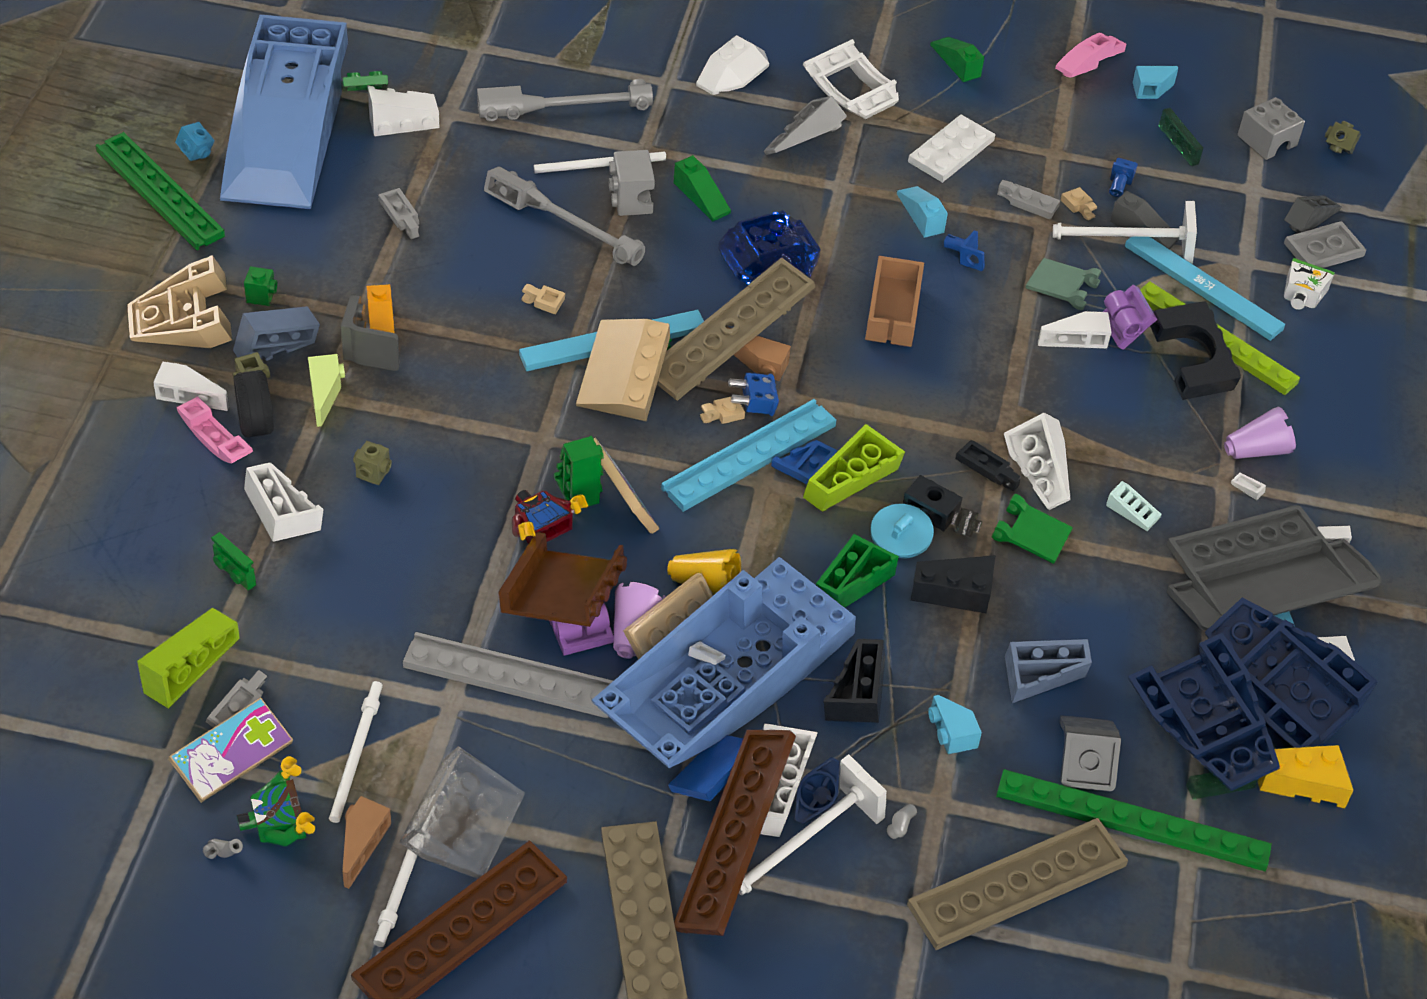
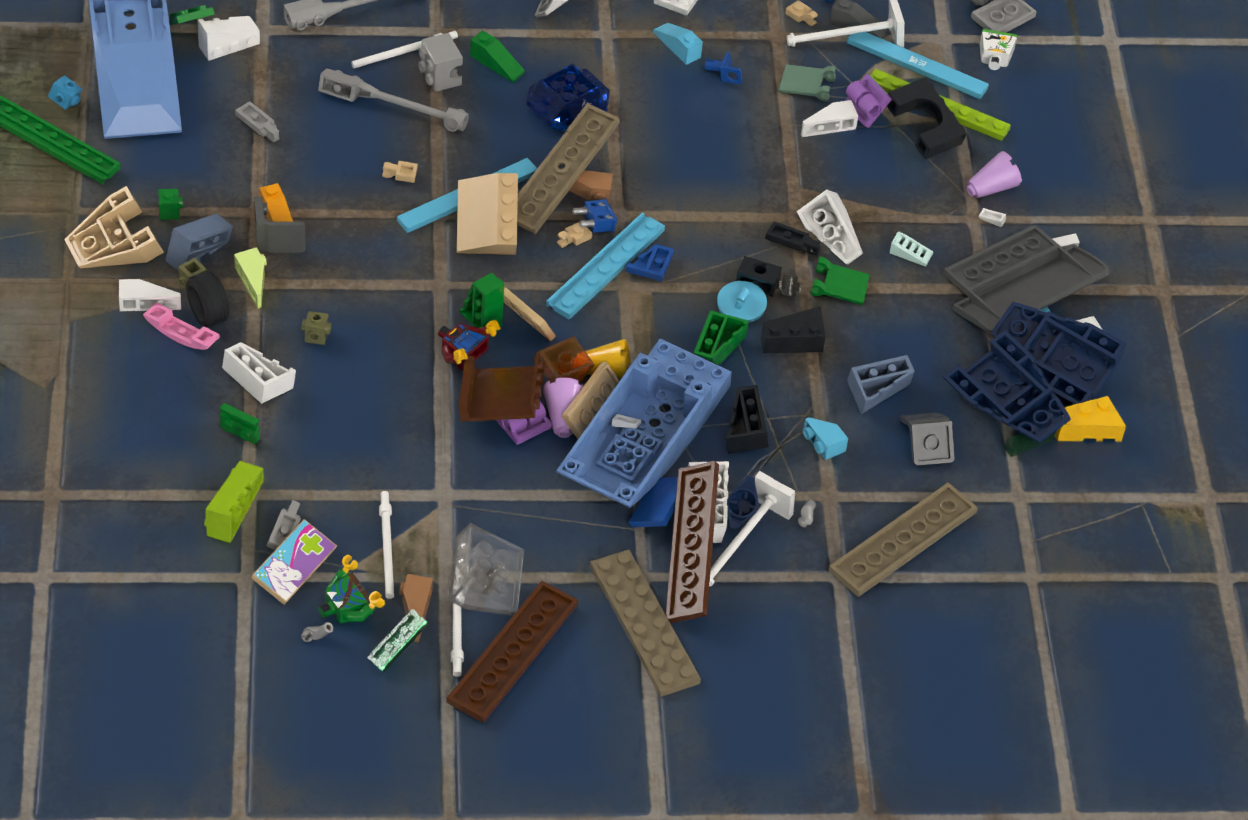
camera: 15 degrees left, 0 degrees up
(315, 882) = (398, 640): none -> clear green plate
(505, 673) = (480, 466): light grey plate -> none
(655, 562) = (565, 360): none -> clear orange slope
(854, 467) = (693, 258): lime wedge -> none
(895, 301) = (682, 121): medium nougat piece -> none
(1028, 199) = (760, 17): light grey hinge -> none
(1135, 820) = (973, 479): green plate -> none

